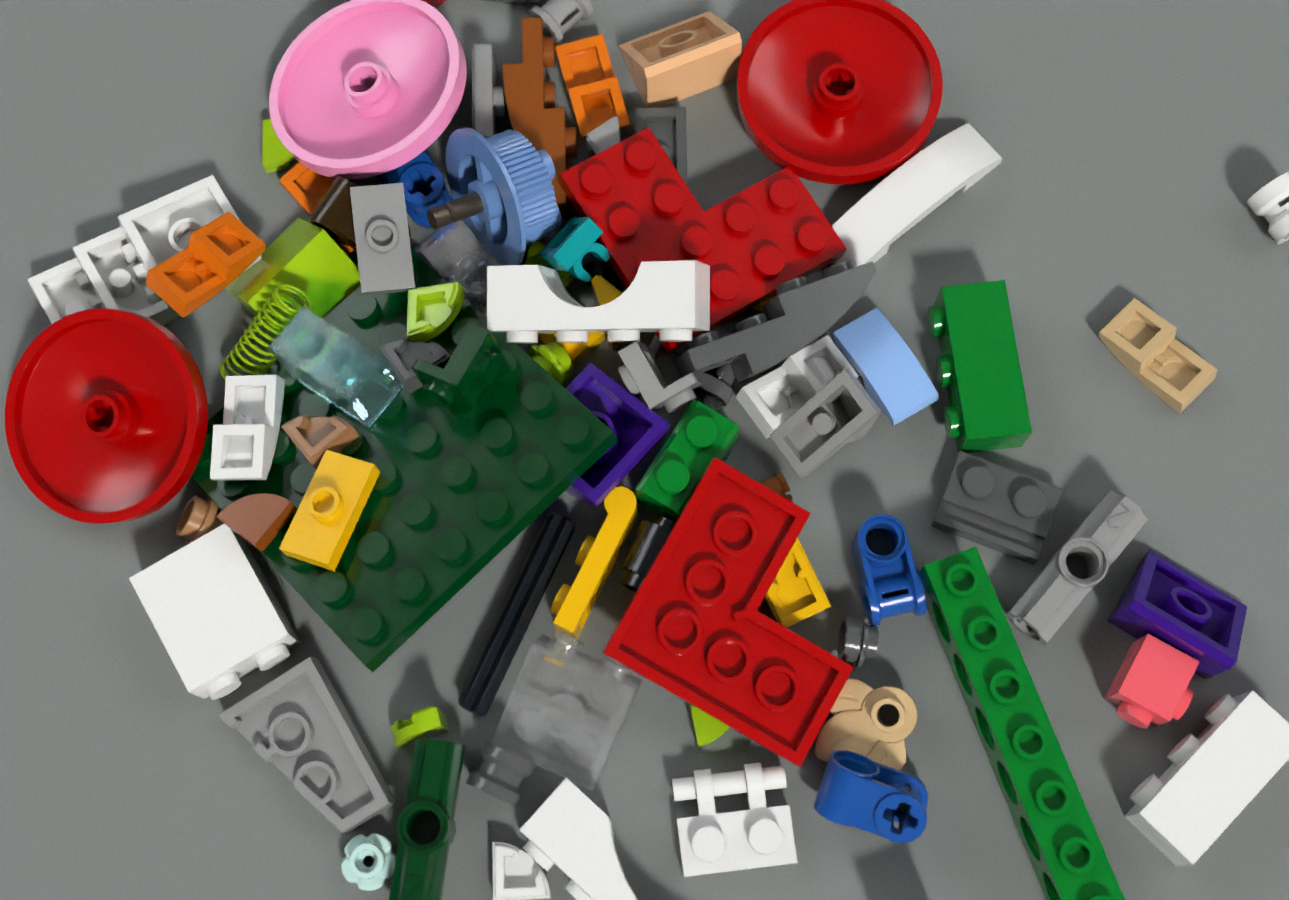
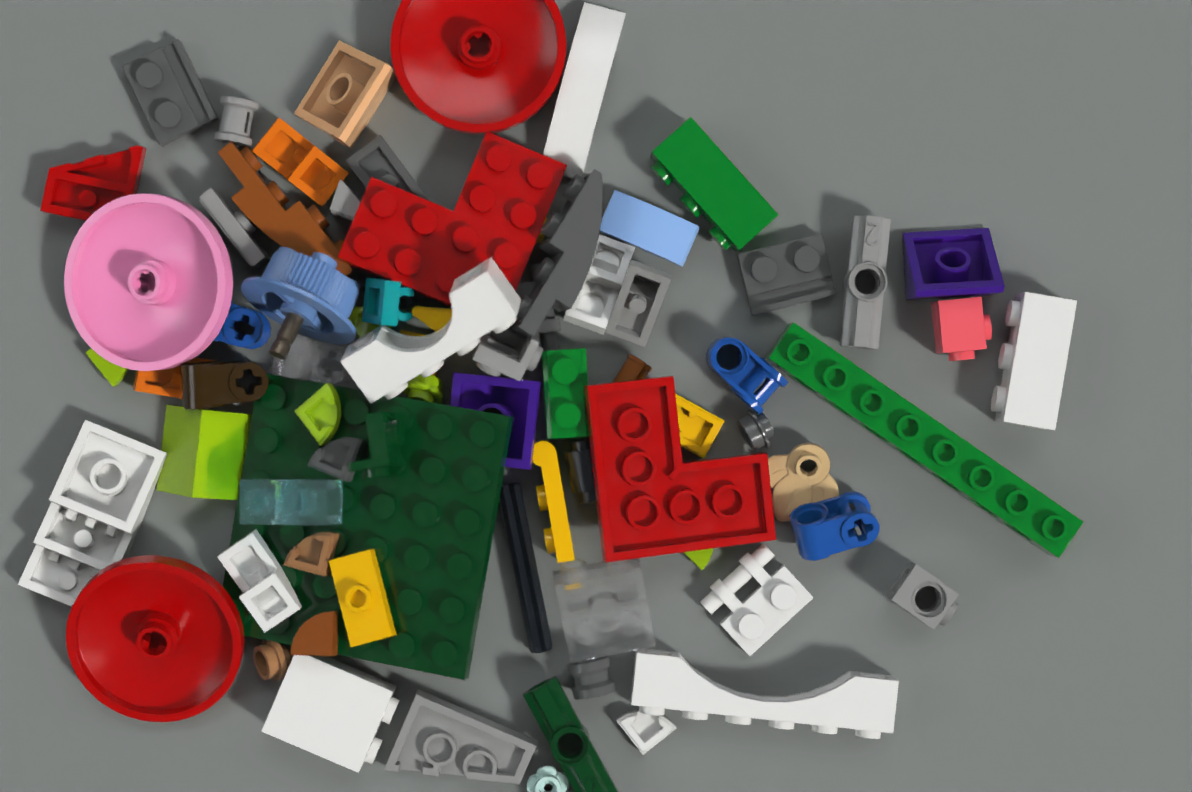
camera: 40 degrees left, 15 degrees up
(207, 266) = (139, 489): orange slope -> none
(247, 365) = (218, 532): lime piece -> none
(382, 238) = (250, 389): light grey plate -> none
(422, 725) = (517, 684): lime tile -> none
(1153, 355) = (824, 90): tan slope -> none

